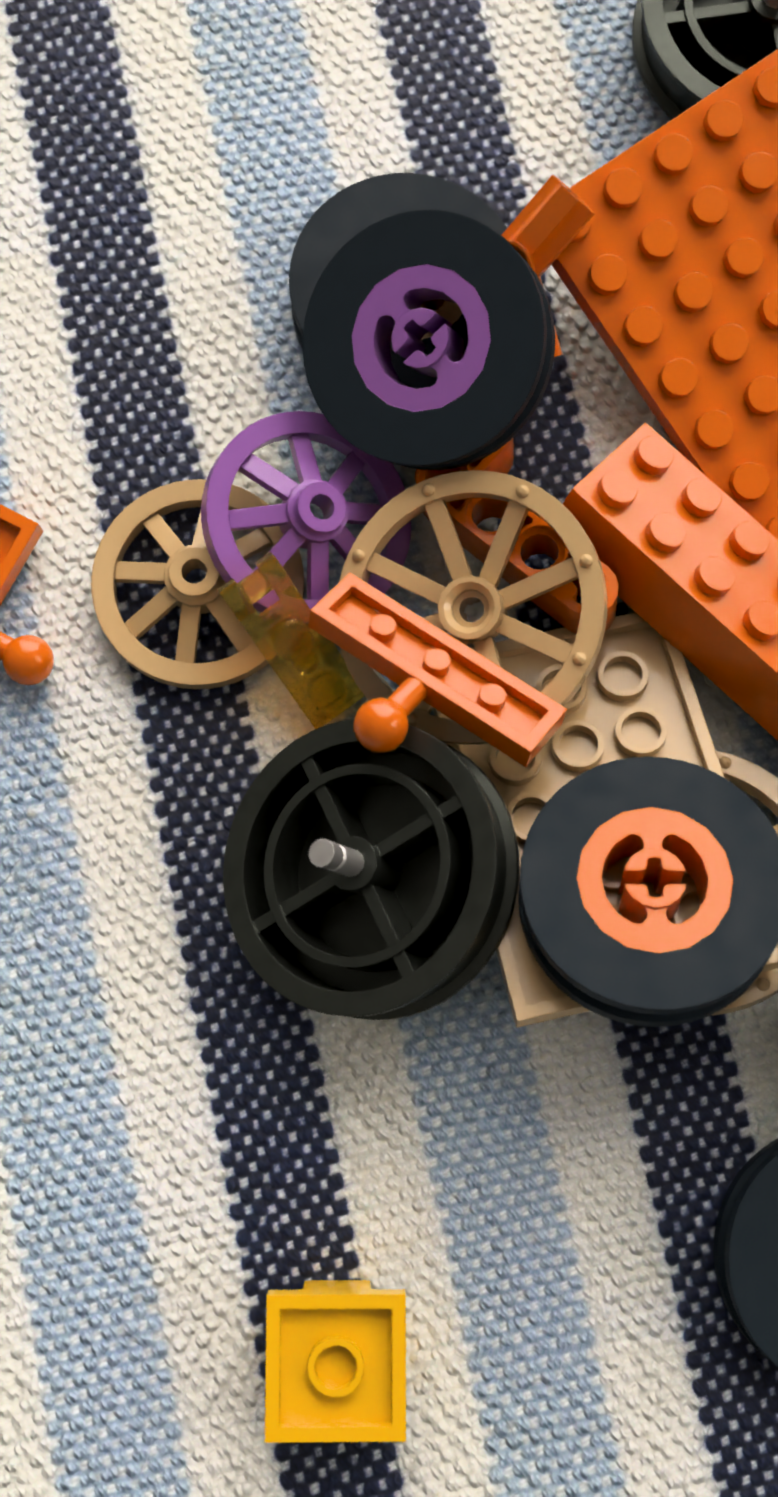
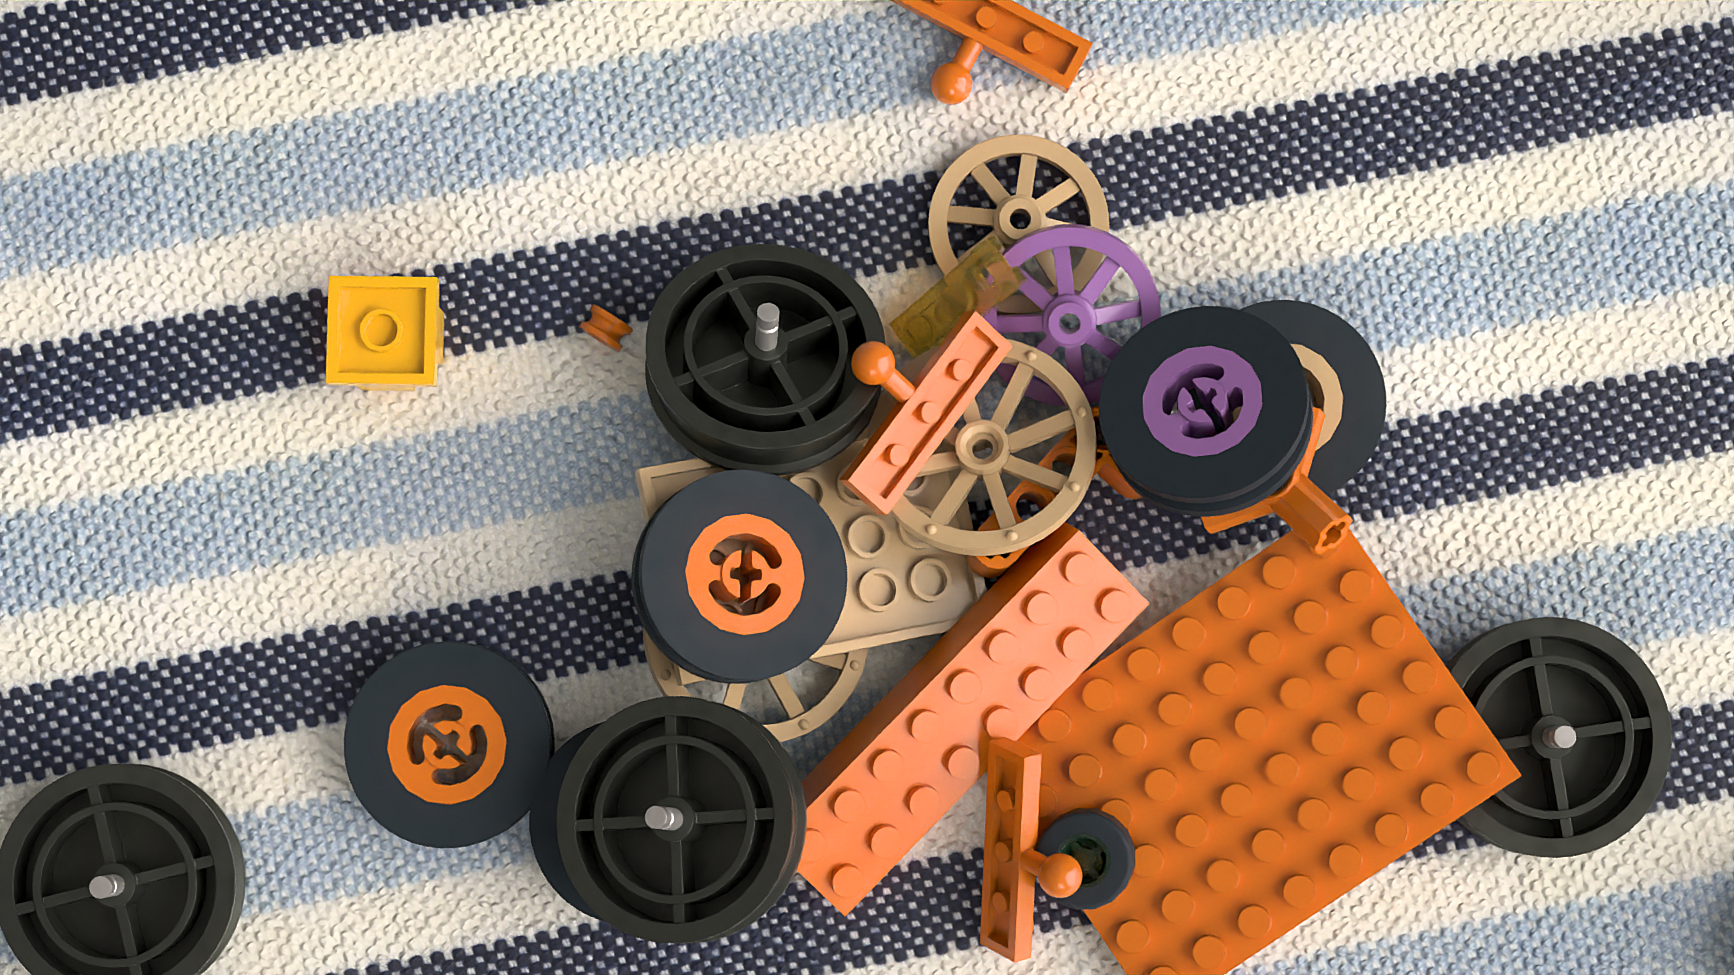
camera: 95 degrees right, 5 degrees up
(325, 1072) = (606, 328): none -> orange bush

